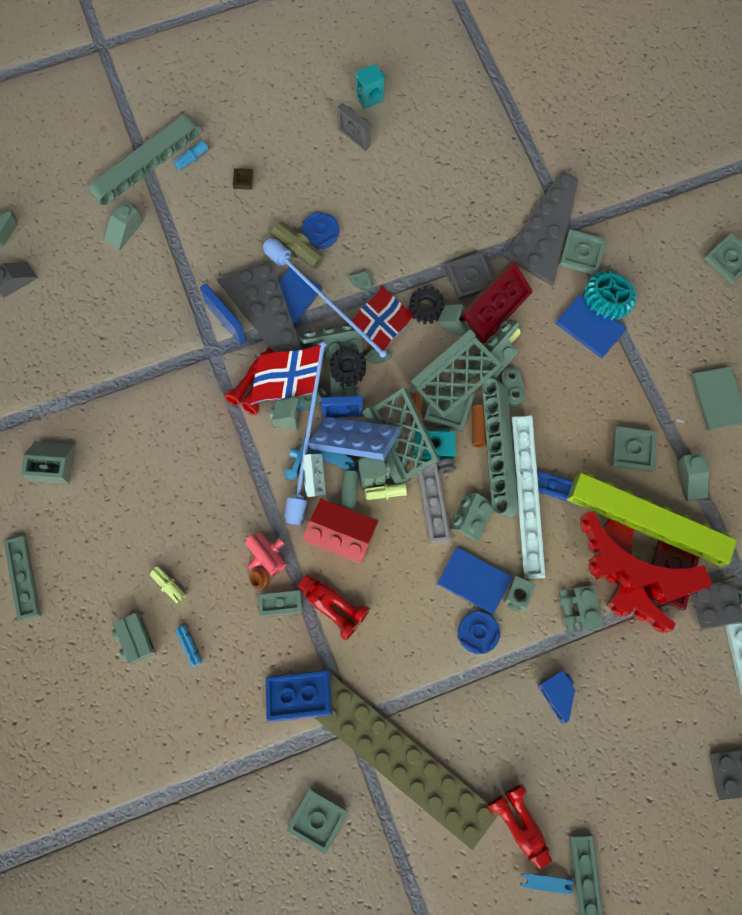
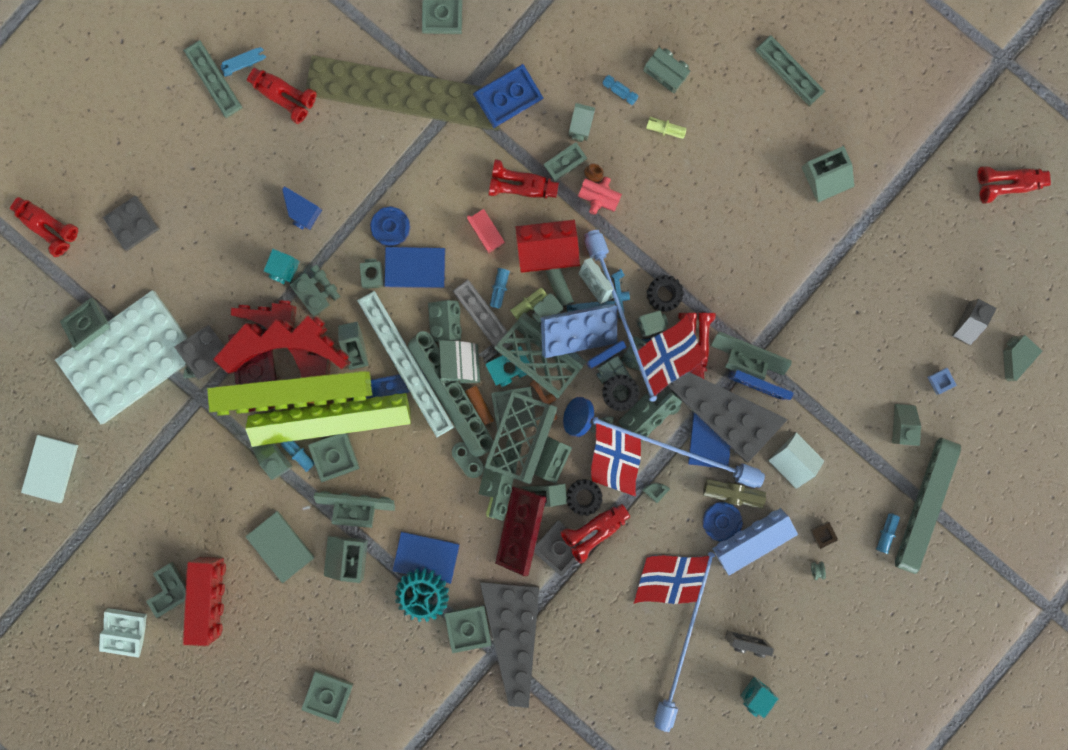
camera: 155 degrees right, 15 degrees up
(69, 245) = (942, 381): none -> medium blue plate
(219, 342) = (749, 358): none -> sand green bracket
(229, 244) = (796, 461): none -> light aqua slope
(244, 629) = (581, 122): none -> sand green slope
(249, 428) = (656, 302): none -> black tyre
(264, 155) = (818, 570): none -> sand green bush
(302, 199) = (755, 541): none -> light blue brick
(389, 206) = (674, 582): none -> flag
(390, 579) = (485, 231): none -> coral panel
(395, 369) = (578, 416): none -> blue tile
(405, 519) = (499, 288): none -> dark azure axle
(422, 272) = (606, 525): none -> red piece
(436, 346) = (552, 460): none -> sand green panel
(478, 470) = (459, 361): none -> sand green slope
(569, 539) = (353, 344): none -> sand green slope
(605, 644) = (281, 267): none -> teal brick
(639, 393) = (354, 510): none -> sand green bracket
(663, 492) = (328, 419): none -> lime brick
(664, 357) = (345, 559): none -> sand green slope
(667, 468) = (298, 454): none -> dark azure axle

